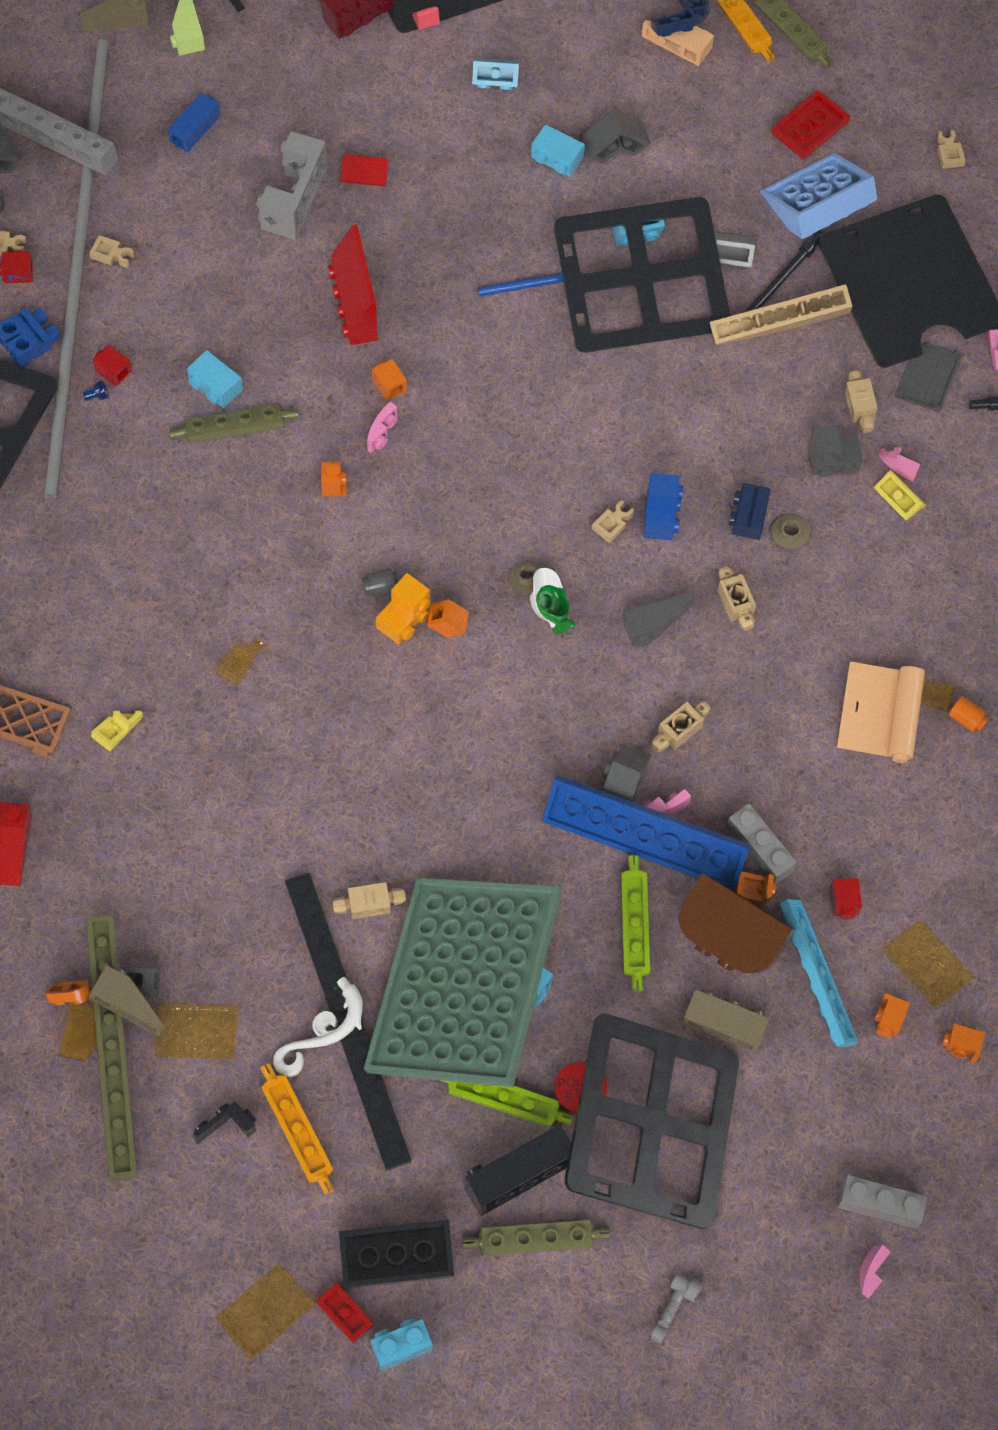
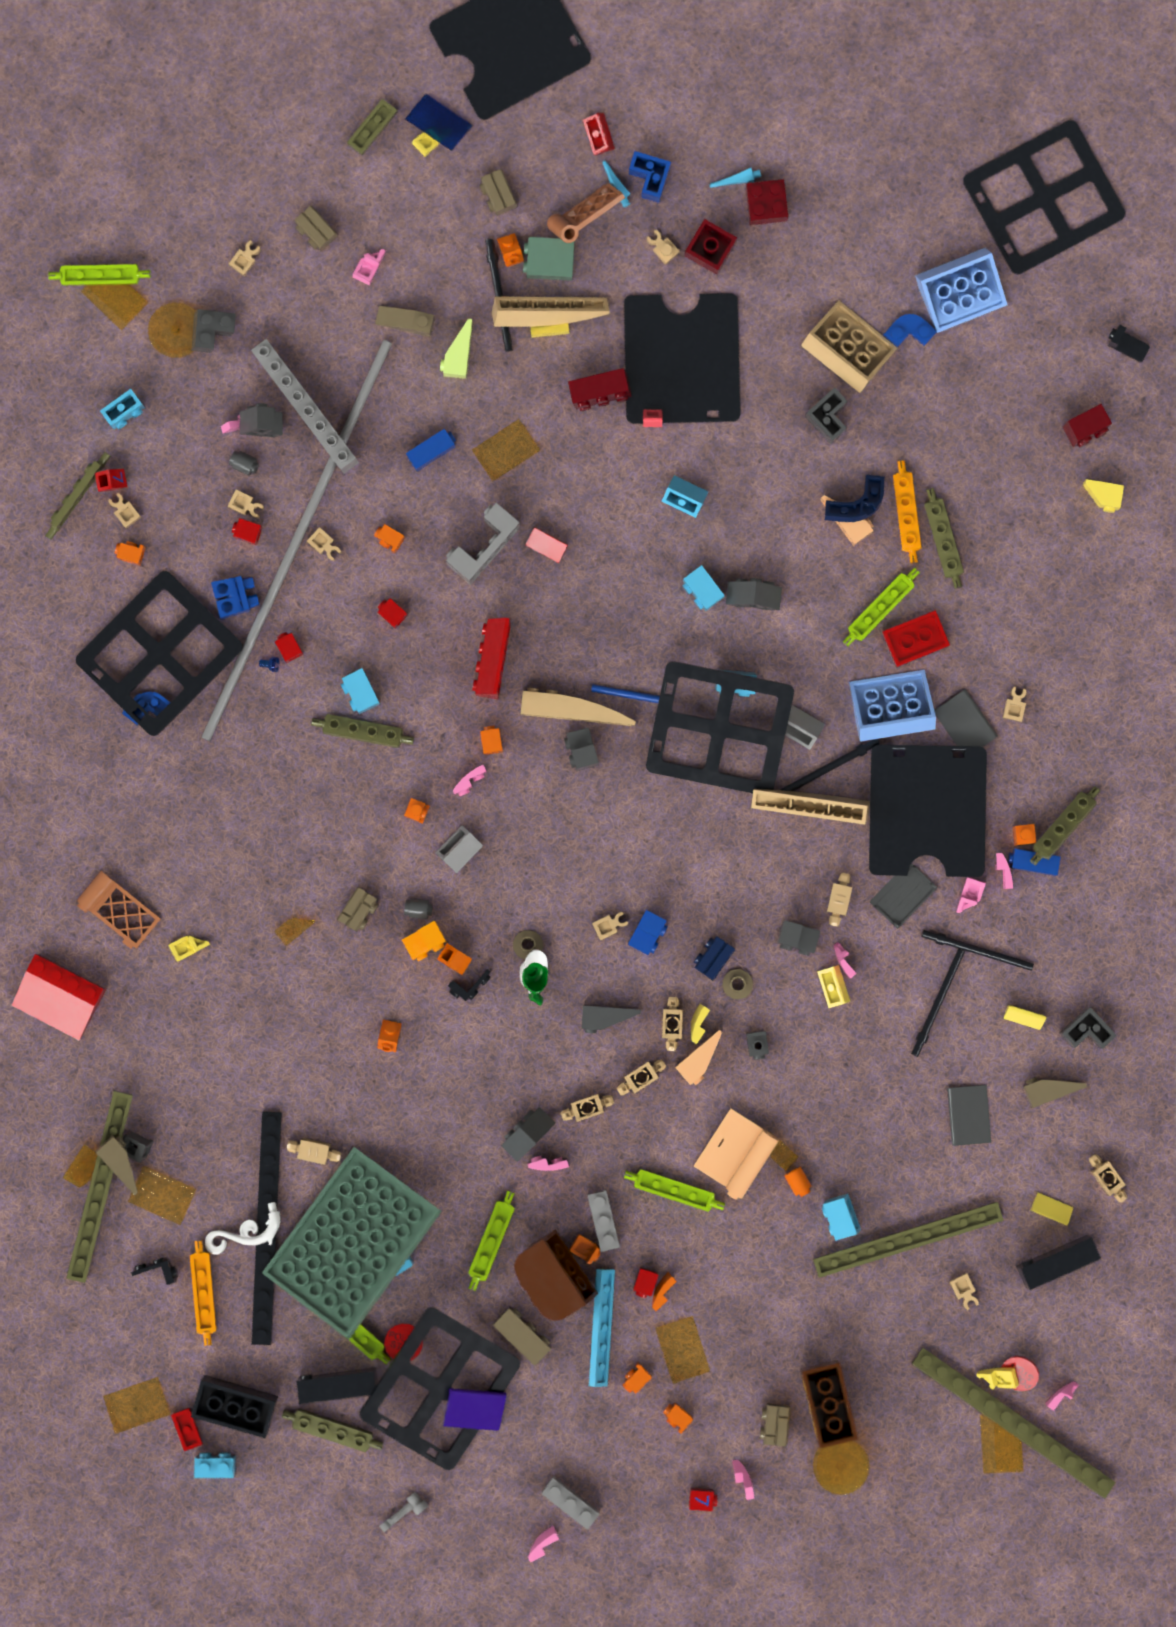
camera: 25 degrees right, 20 degrees up
(68, 991) = (84, 1136): orange plate -> none
(184, 219) = (389, 538): none -> orange brick
(218, 291) = (391, 613): none -> red brick
(278, 100) = (505, 450): none -> clear yellow piece
(308, 609) = (358, 909): none -> dark tan brick
(401, 503) = (459, 849): none -> light grey brick
(406, 737) = (389, 1036): none -> orange bracket
(467, 316) = (569, 708): none -> tan slope
(471, 654) = (457, 991): none -> black bracket
(498, 350) = (582, 749): none -> dark grey brick
(644, 832) = (525, 1180): blue plate -> none
(707, 1132) = (474, 1409): none -> dark purple piece
(717, 679) = (623, 1088): none -> tan piece
(758, 108) = (881, 607): none -> lime plate
(764, 589) = (697, 1019): none -> light yellow slope
(786, 628) = (697, 1062): none -> light nougat slope
(828, 780) = (674, 1190): none -> lime plate
(845, 592) = (755, 1037): none -> dark grey brick
(871, 907) = (661, 1288): none -> orange slope
(903, 184) = (965, 721): none -> dark grey piece

